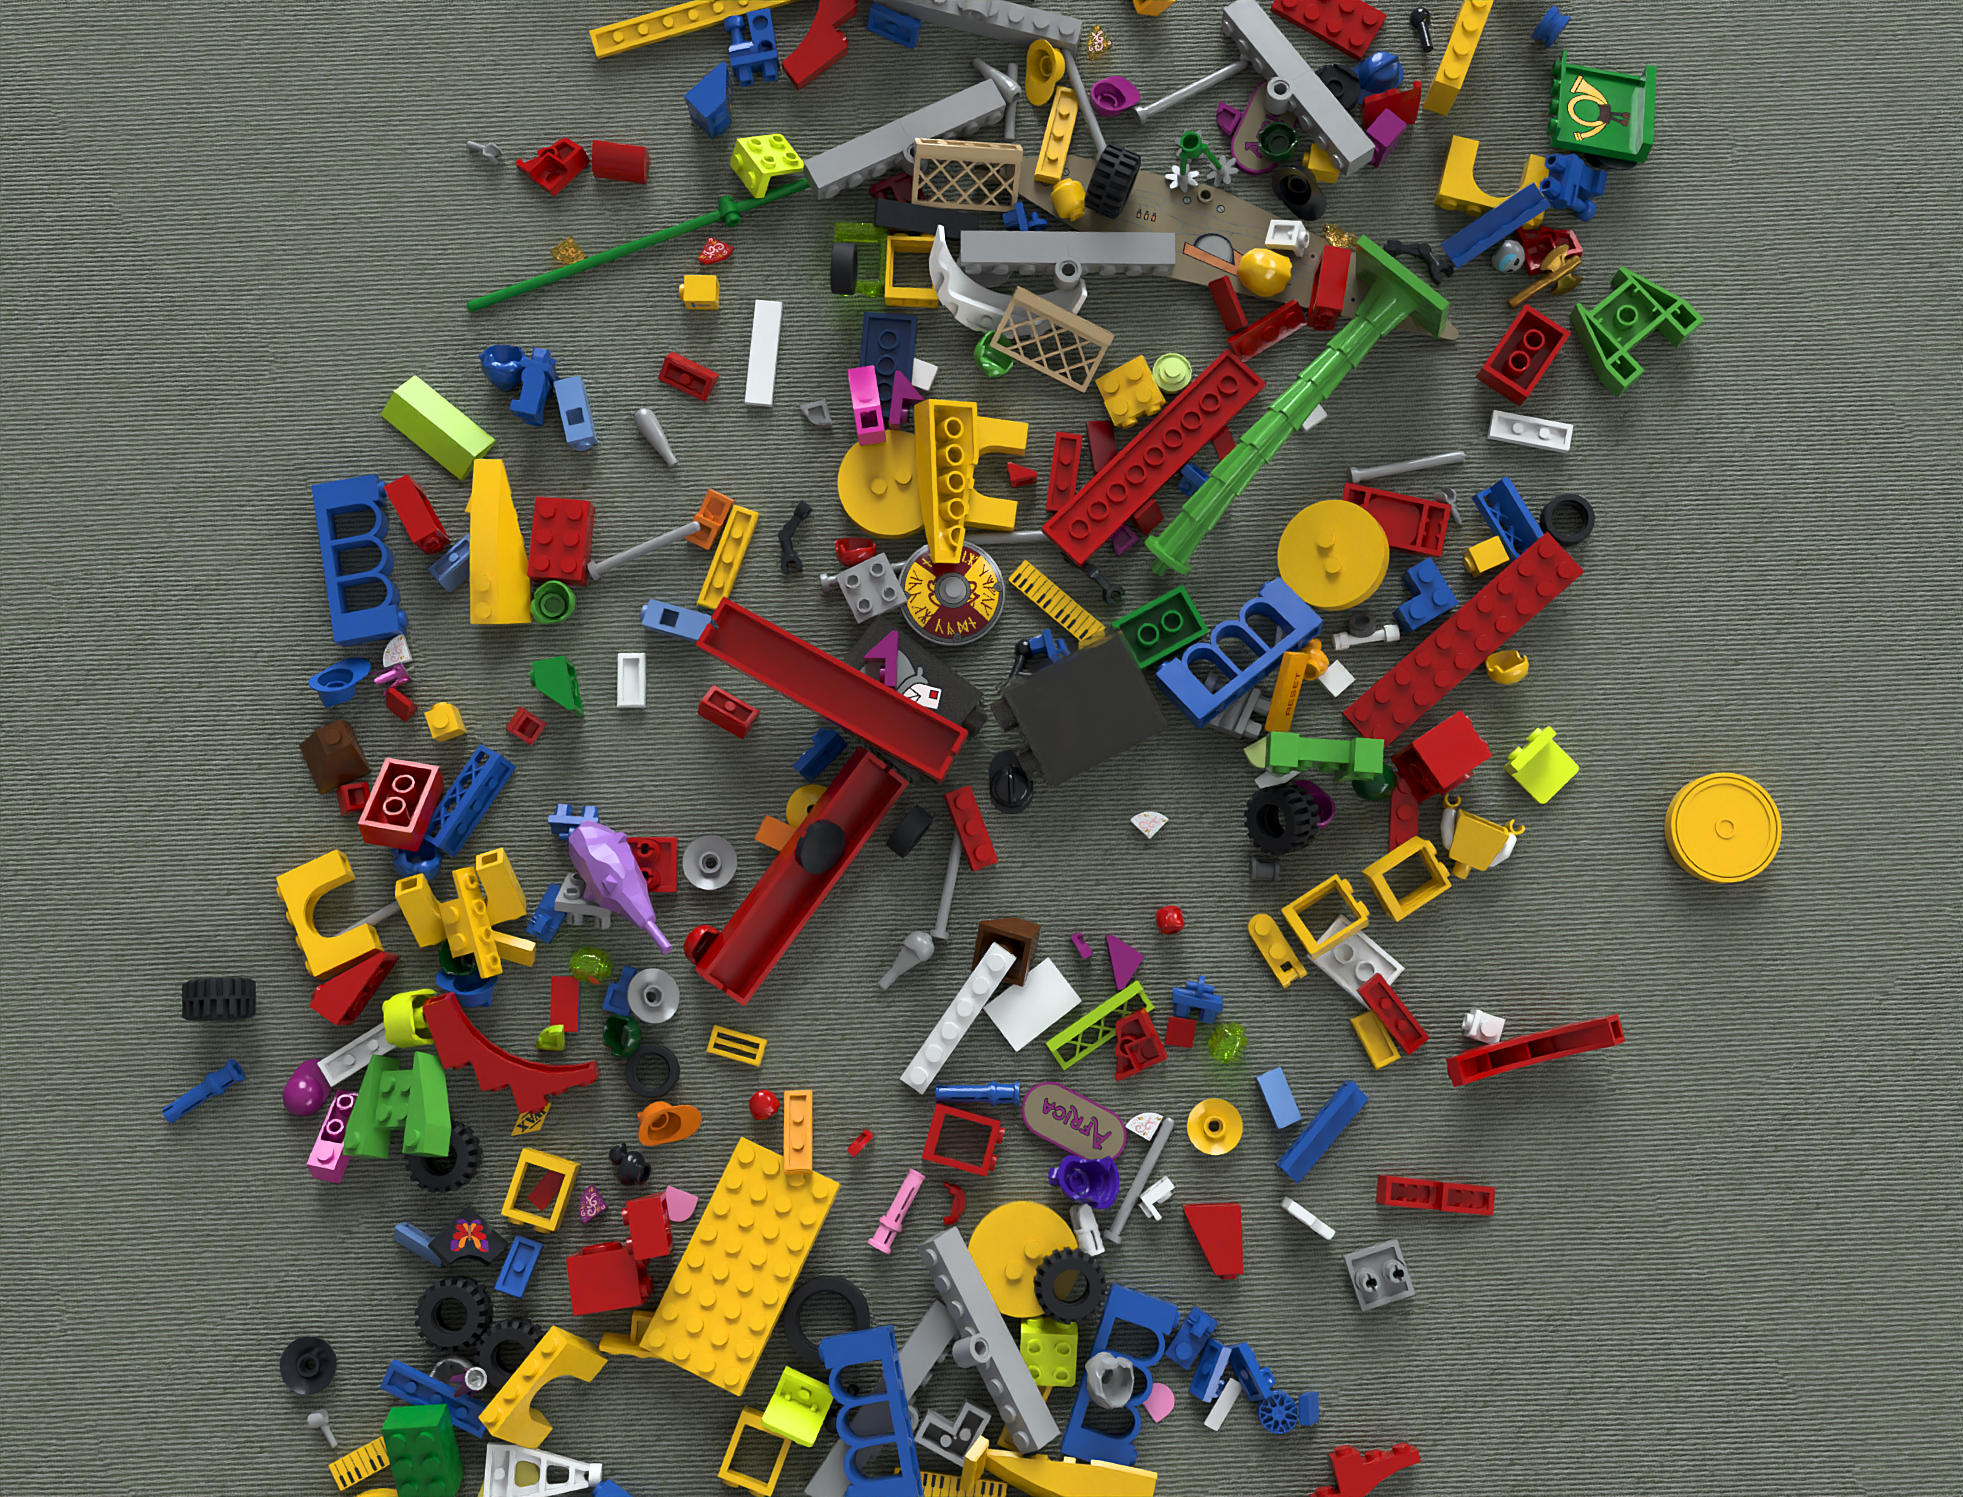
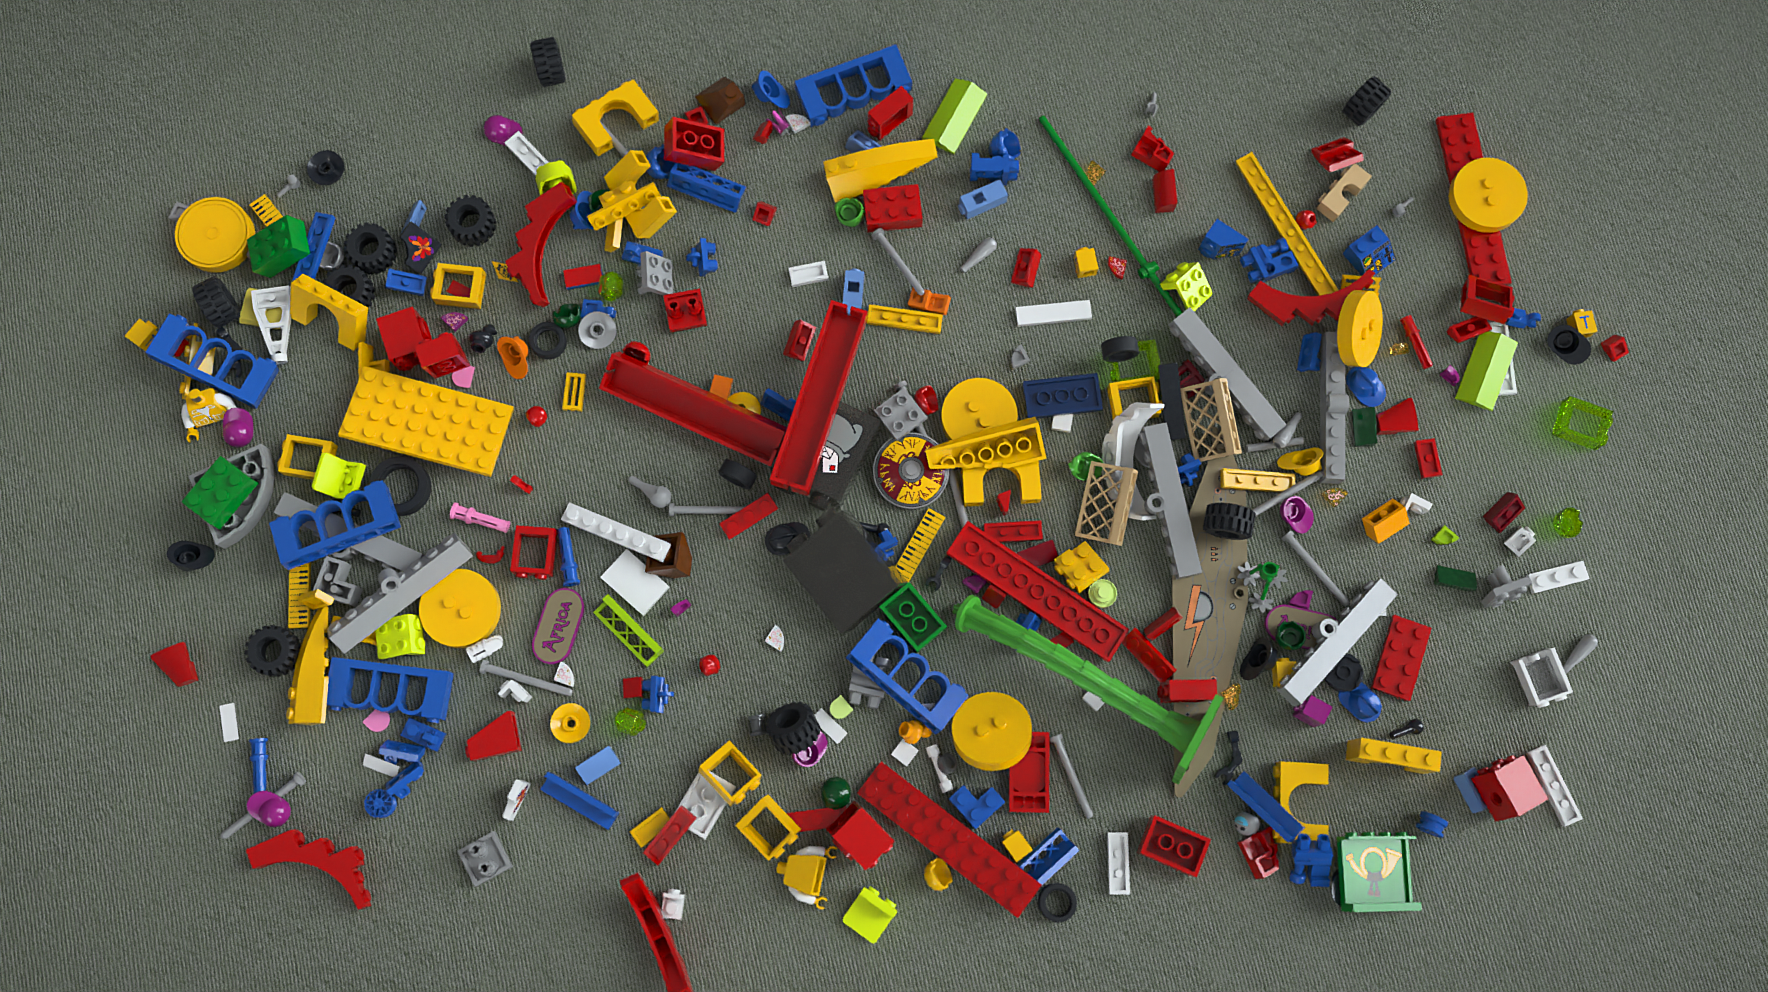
camera: 75 degrees right, 5 degrees down
(213, 1085) = (495, 73): blue pin -> none
(327, 1155) = (472, 153): dark pink slope -> none
(348, 994) = (564, 139): red slope -> none
(400, 1101) = (500, 184): bright green wedge -> none
(445, 721) = (756, 161): yellow brick -> none
(472, 1381) = (325, 265): piece -> none
(552, 1038) = (558, 272): lime tile -> none
(559, 682) = (793, 226): green slope -> none
(614, 877) = (667, 283): medium lavender piece -> none
(696, 860) = (691, 340): light grey dish -> none
(784, 536) = (946, 359): black piece -> none
(798, 1132) = (521, 441): light orange tile -> none
(820, 846) = (713, 414): black tile -> none
(866, 405) = (1028, 385): dark pink slope -> none
(886, 652) = (853, 431): magenta slope -> none
(903, 395) = (1040, 407): magenta slope -> none
(1068, 199) = (1209, 493): yellow head -> none
(1083, 1306) = (427, 639): black tyre -> none
(1087, 1181) = (517, 640): dark purple helmet -> none
(1109, 1380) = (382, 678): light grey hair -> none
(1123, 960) = (675, 637): magenta slope -> none
(1137, 1044) = (619, 658): red slope -> none
(1264, 272) = (1191, 644): yellow hair -> none
(1275, 949) = (702, 744): yellow plate -> none
(1286, 691) = (885, 715): light orange tile -> none
(1287, 236) = (1221, 657): white bracket -> none
(1308, 1408) = (385, 825): blue tile -> none
(1347, 759) = (836, 714): bright green wedge -> none
(1402, 104) = (1340, 716): red slope -> none
(1435, 1195) = (547, 891): red slope -> none
(1448, 496) = (1052, 812): light grey hand -> none
(1559, 274) = (1244, 863): pearl gold piece -> none
(1625, 321) = (1219, 921): bright green wedge -> none

